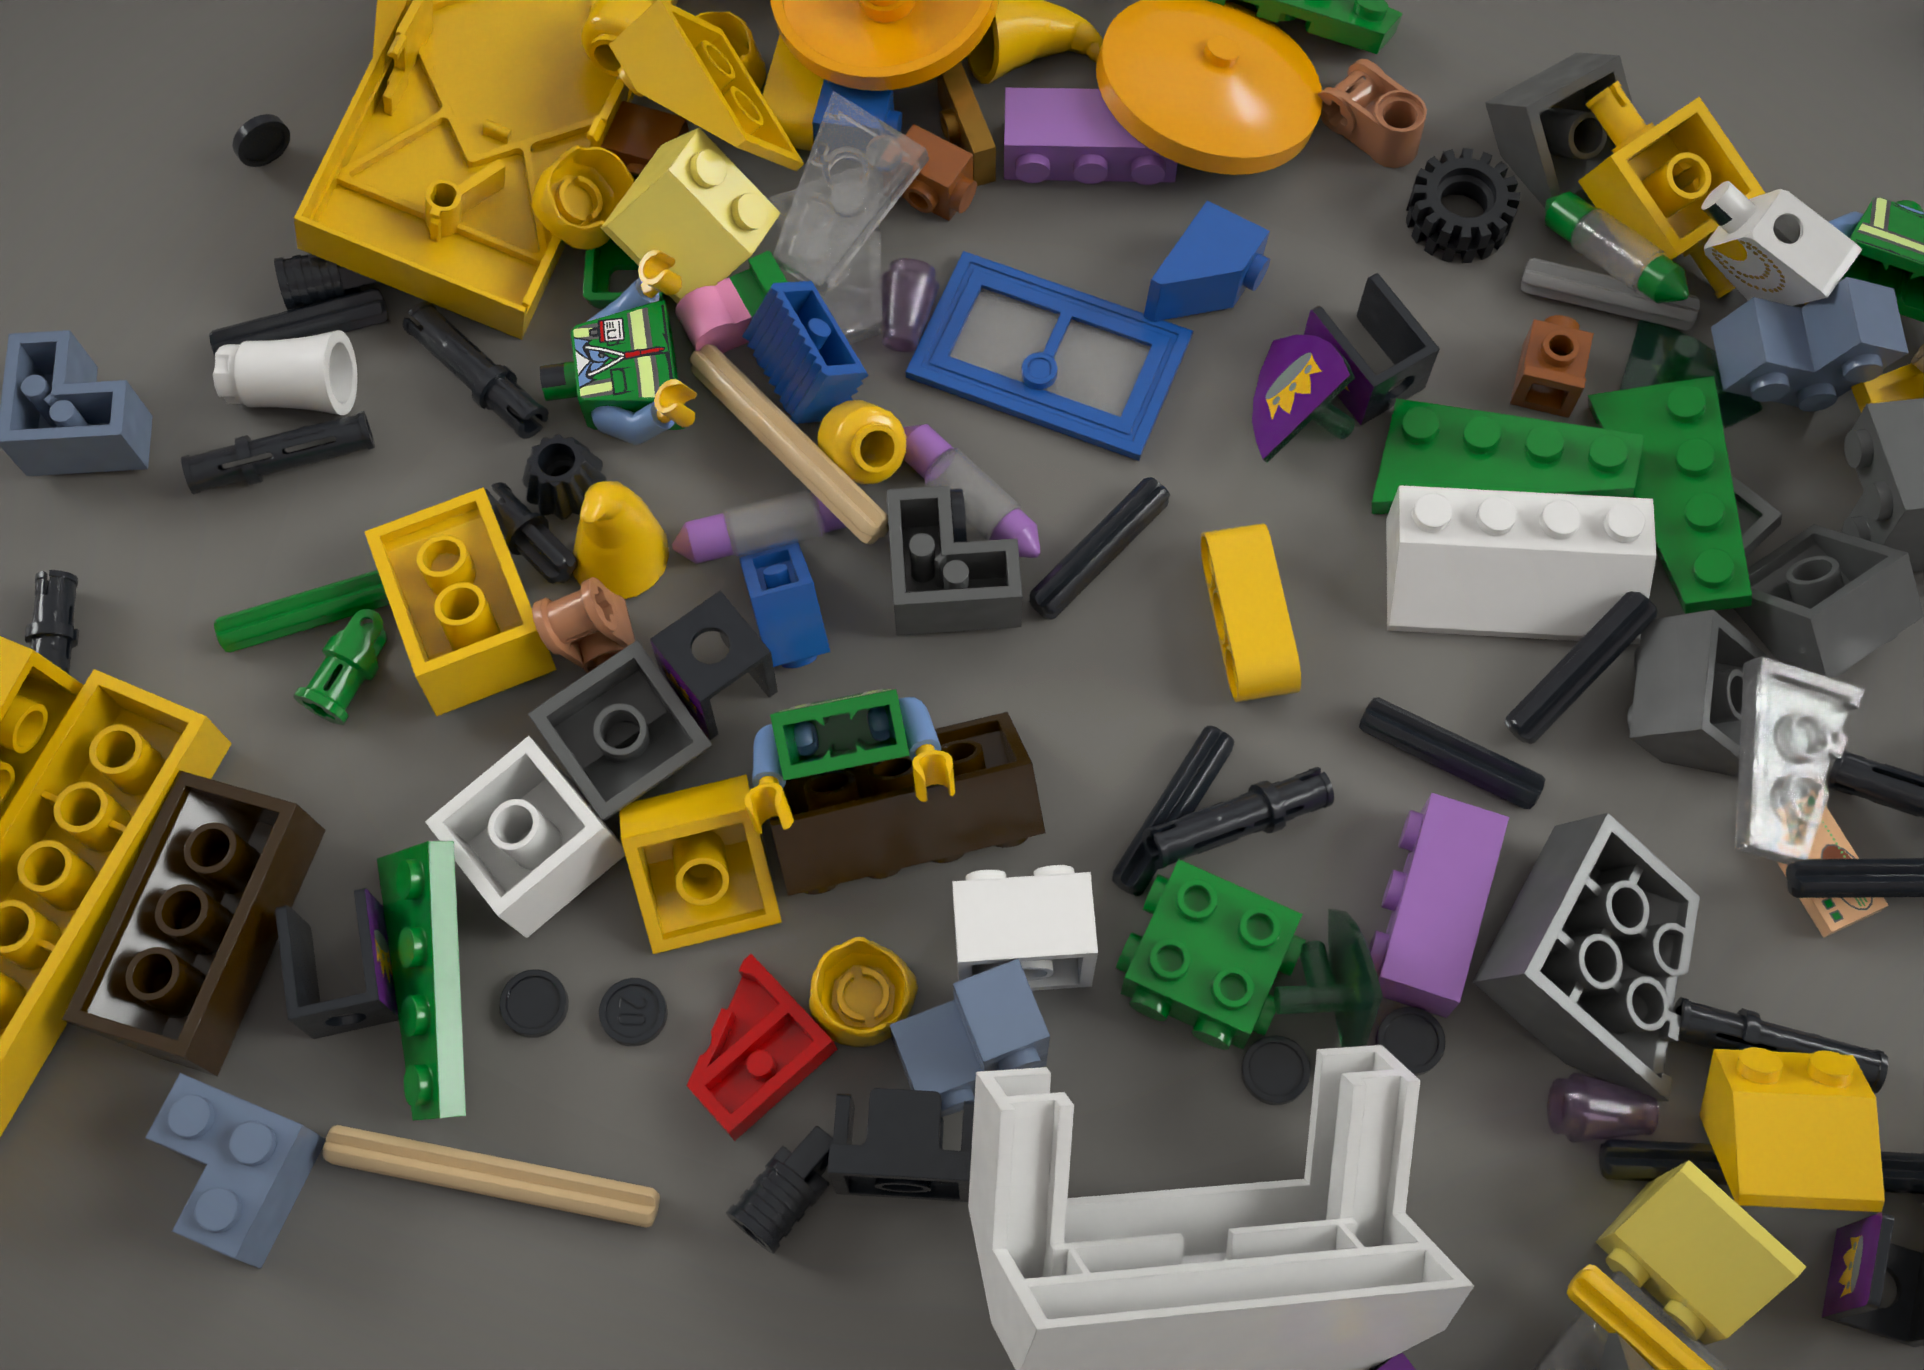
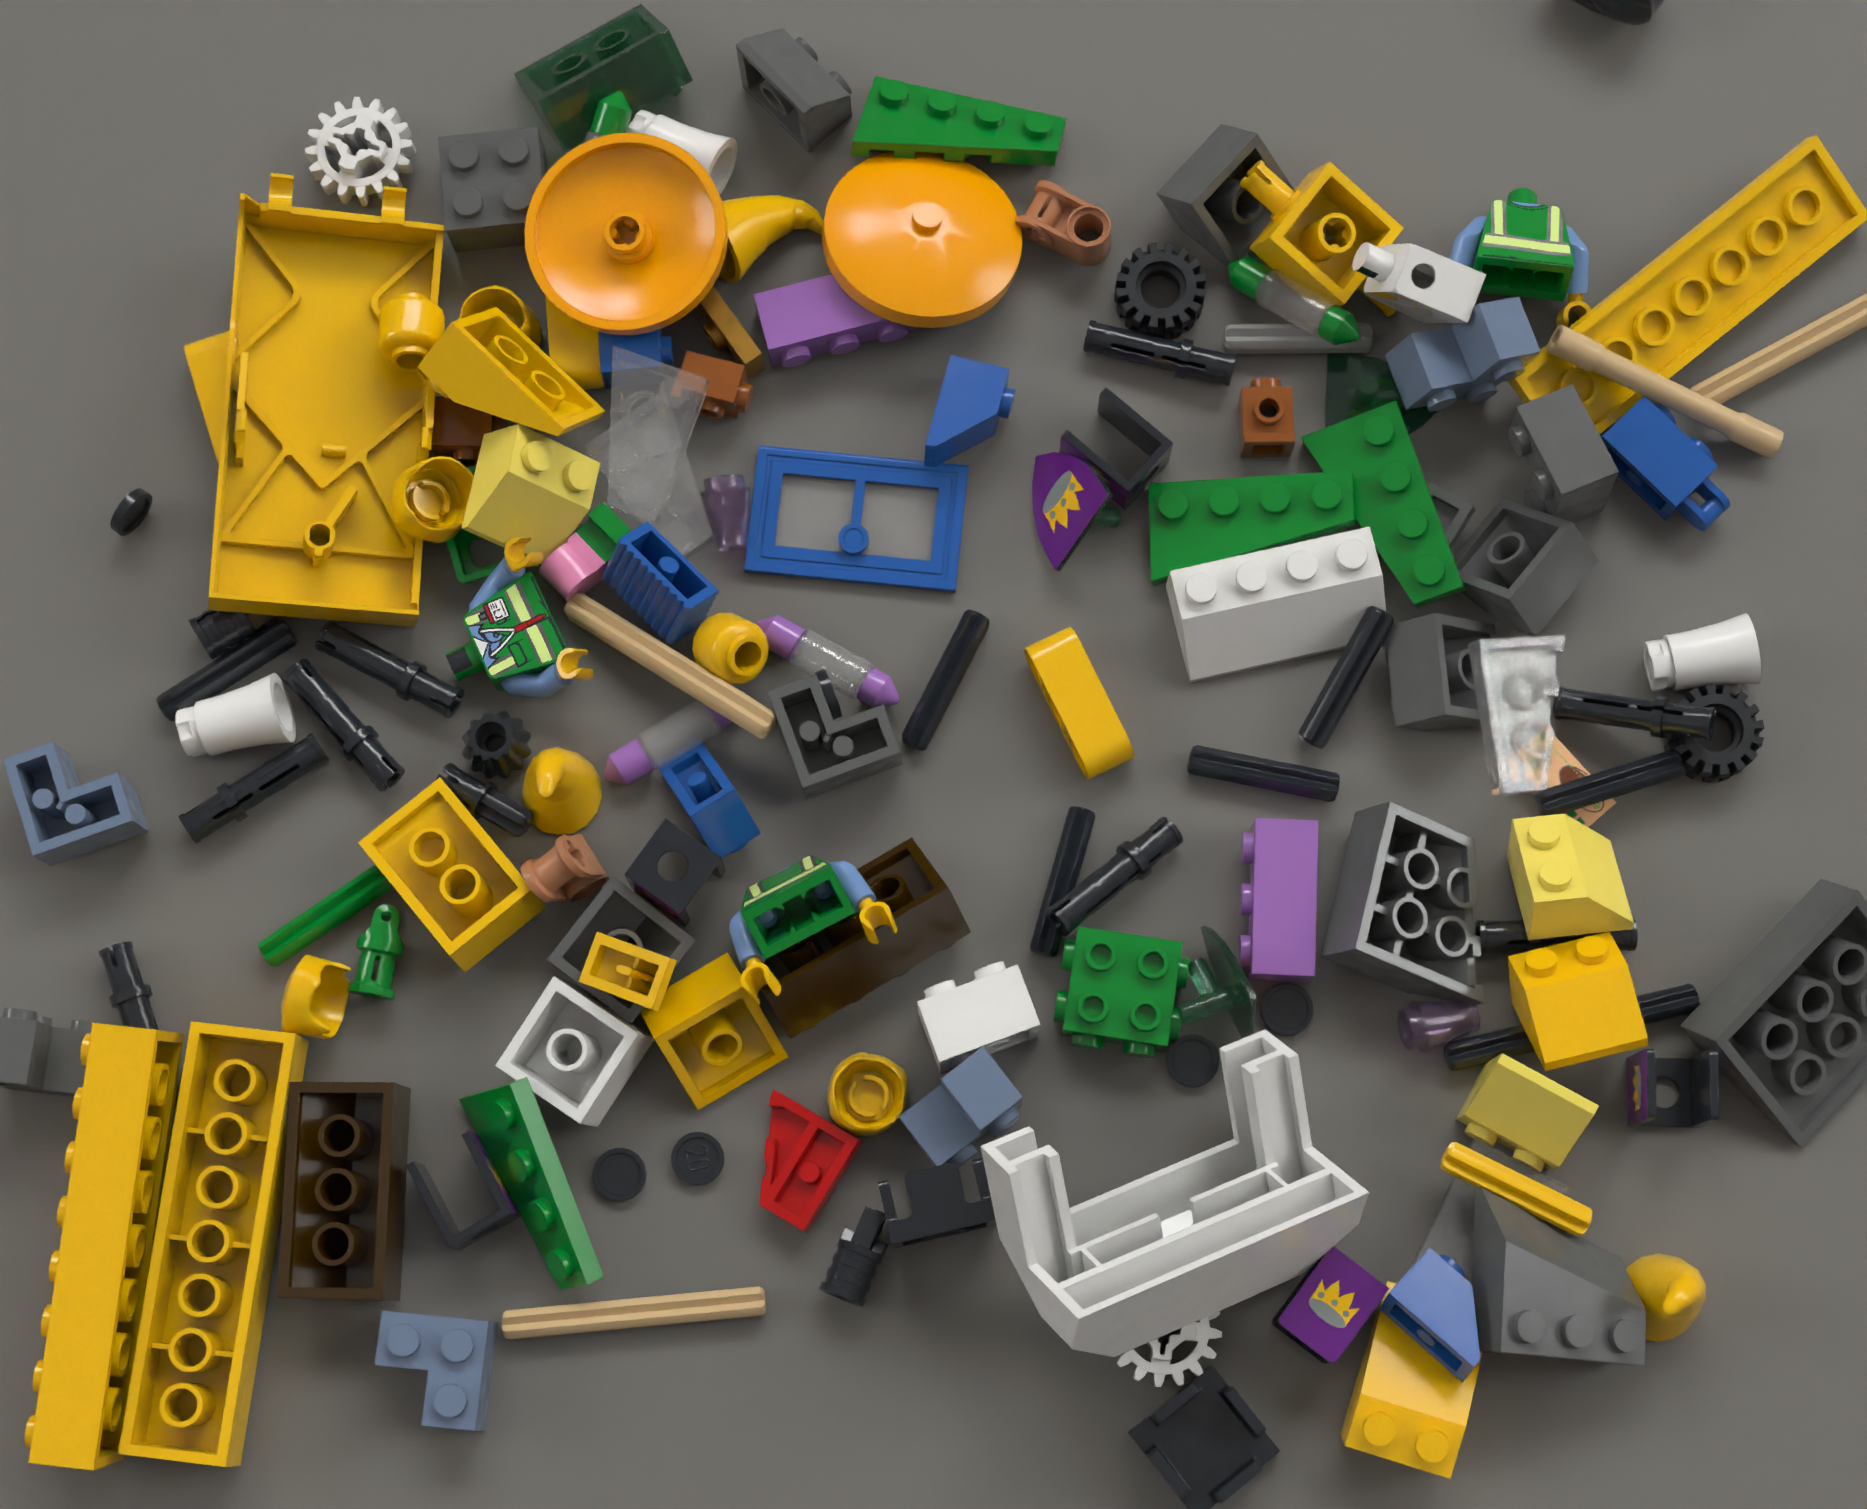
camera: 15 degrees left, 10 degrees up
(251, 690) = (315, 998): none -> yellow hair
(410, 431) = (355, 738): none -> black pin
(619, 752) = (627, 971): none -> yellow slope
(1509, 299) = (1160, 352): none -> black pin
(1806, 974) = (1565, 878): none -> light yellow slope

